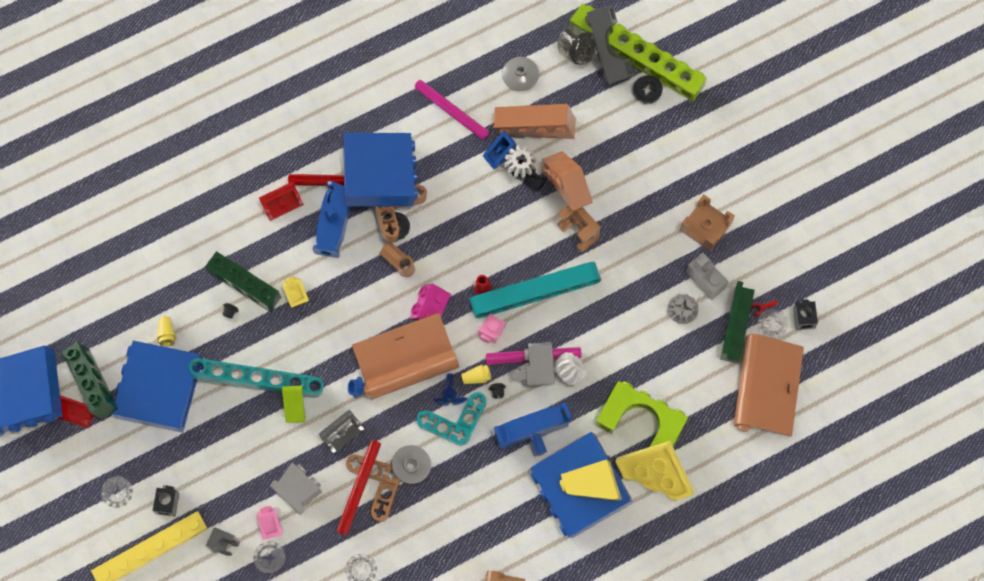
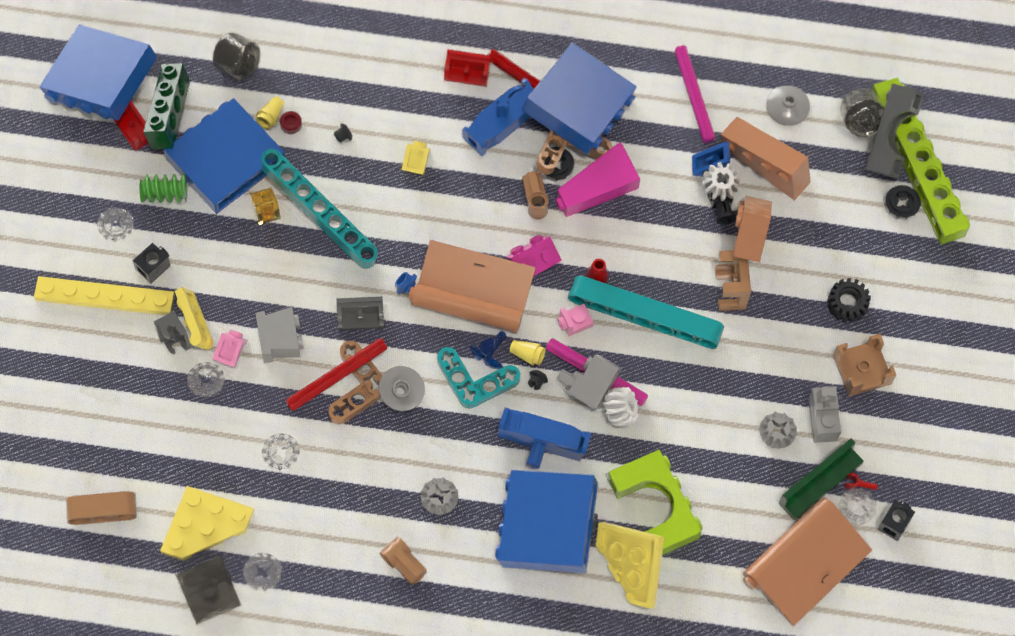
camera: 30 degrees right, 5 degrees down
(110, 308) = (236, 56): none -> clear smoke head
(132, 442) = (163, 188): none -> bright green piece
(185, 328) = (290, 122): none -> dark red tile
(214, 401) = (265, 206): none -> clear yellow slope
(227, 520) = (194, 319): none -> light yellow plate
(243, 281) = (375, 116): dark green brick -> none
(293, 404) = (335, 256): lime tile -> none
(436, 217) = (599, 182): none -> dark pink slope
(494, 529) = (432, 504): none -> light grey gear
(592, 481) = (558, 521): light yellow slope -> none
(663, 174) = (854, 289): none -> black tyre

